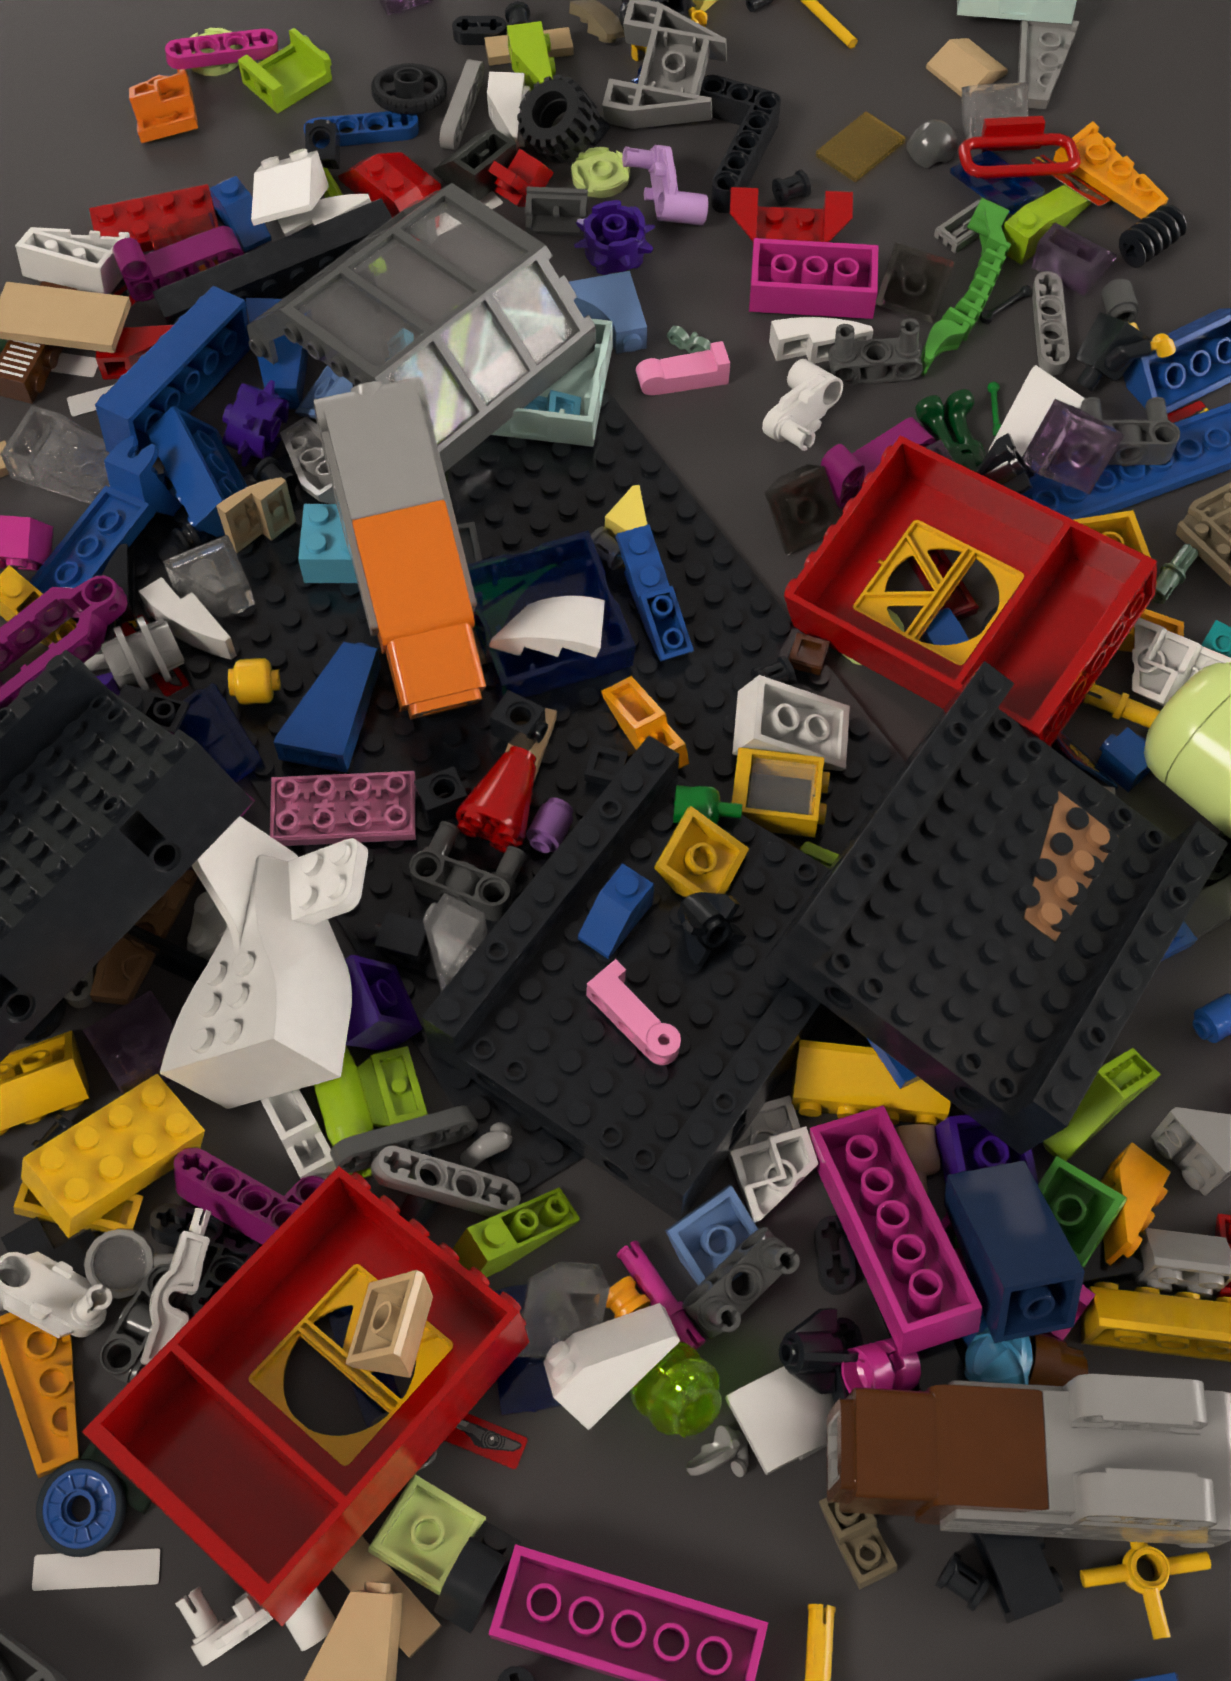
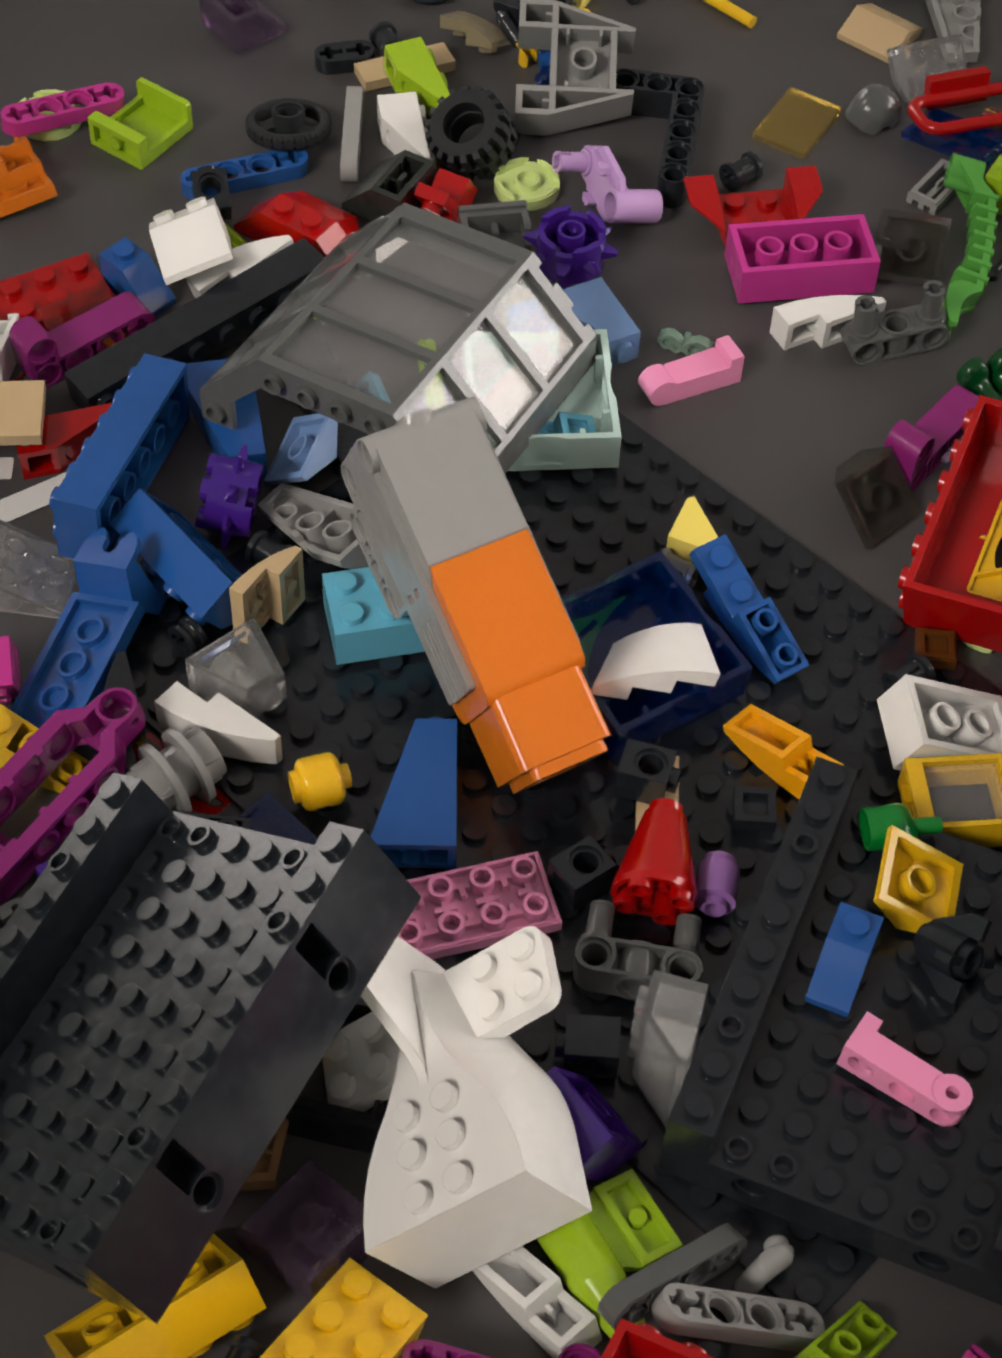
camera: 15 degrees left, 10 degrees down
(799, 410) = (843, 377): white piece -> none

